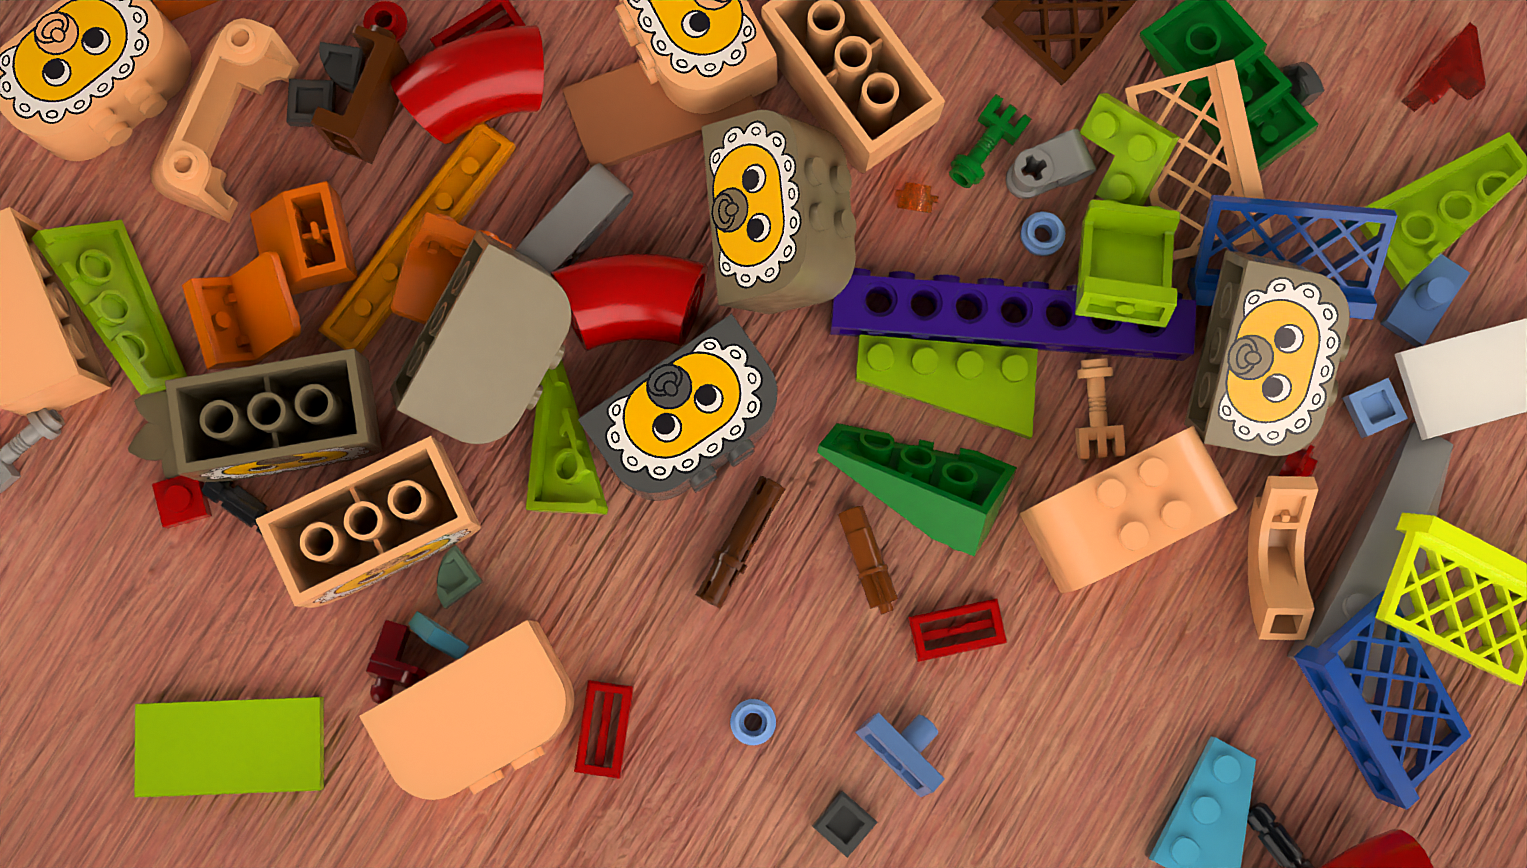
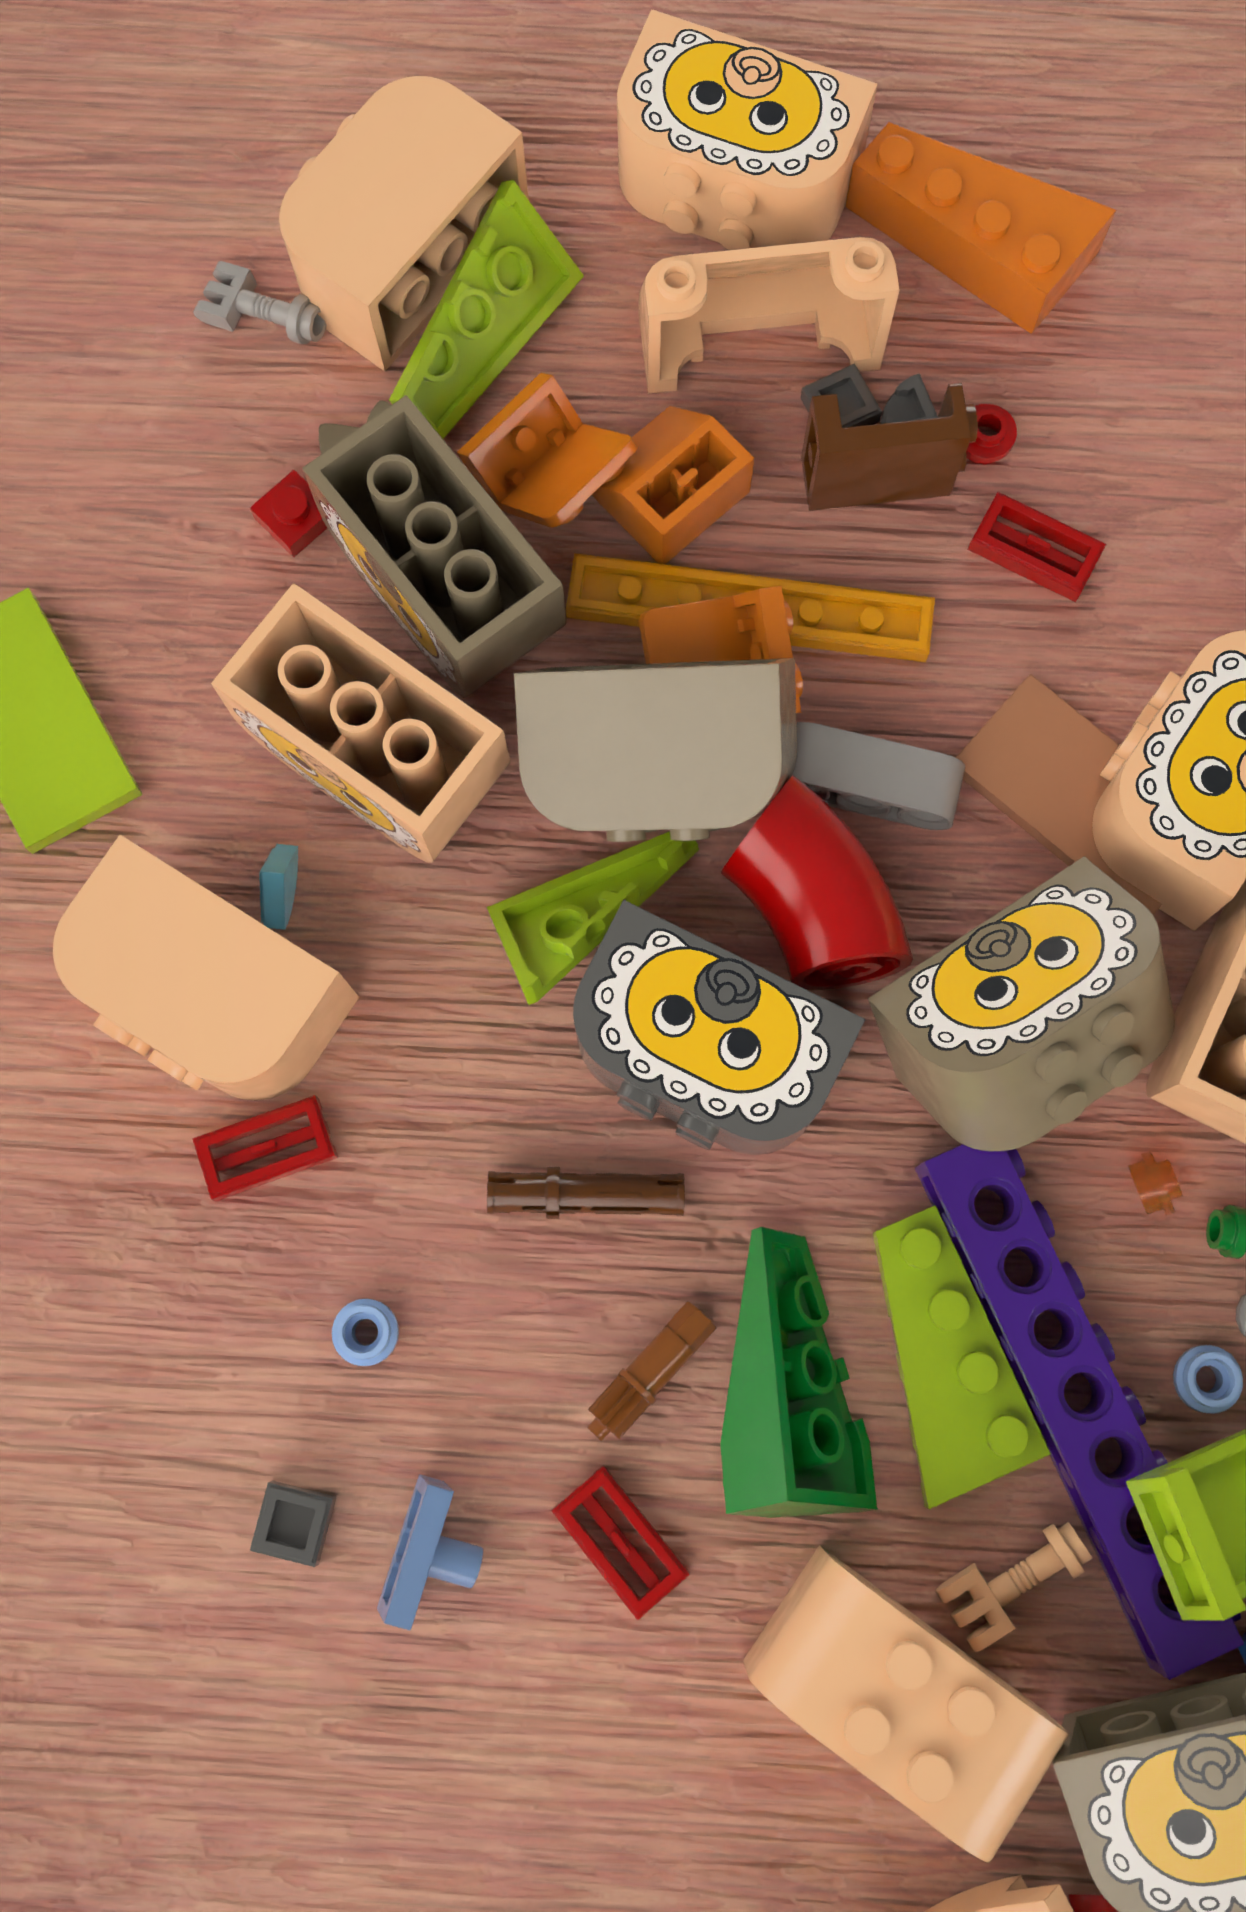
camera: 70 degrees right, 5 degrees down
(236, 501) = (323, 570): black axle -> none
(386, 663) = (218, 841): dark red piece -> none
(455, 577) = (362, 870): sand green tile -> none
(474, 81) = (974, 559): red brick -> none

